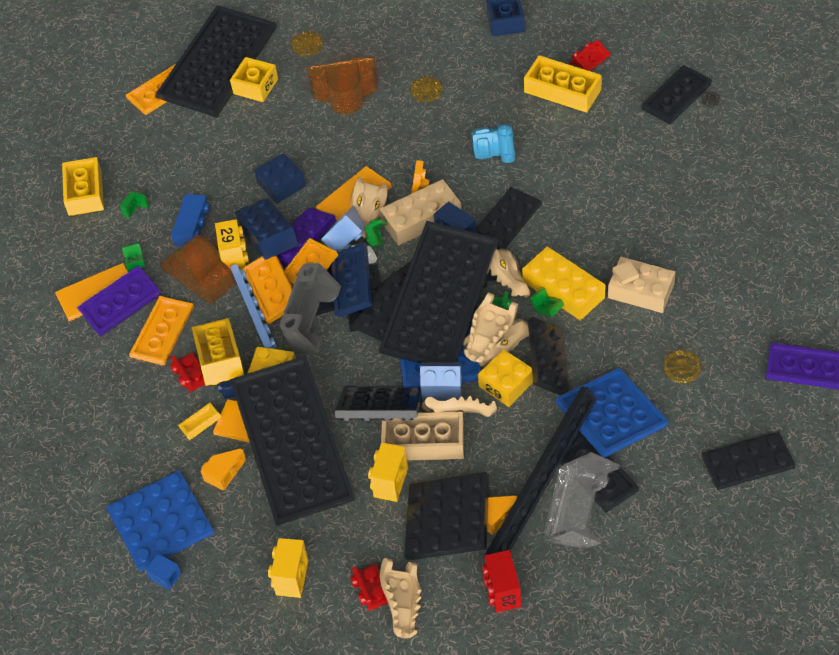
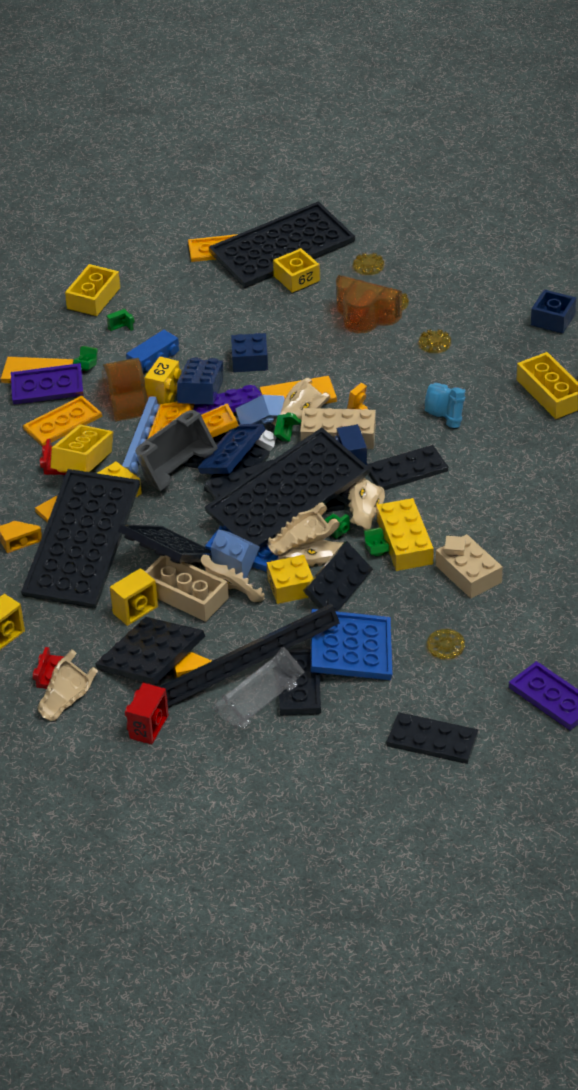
camera: 30 degrees right, 10 degrees down
(199, 421) = (31, 496): yellow tile -> none

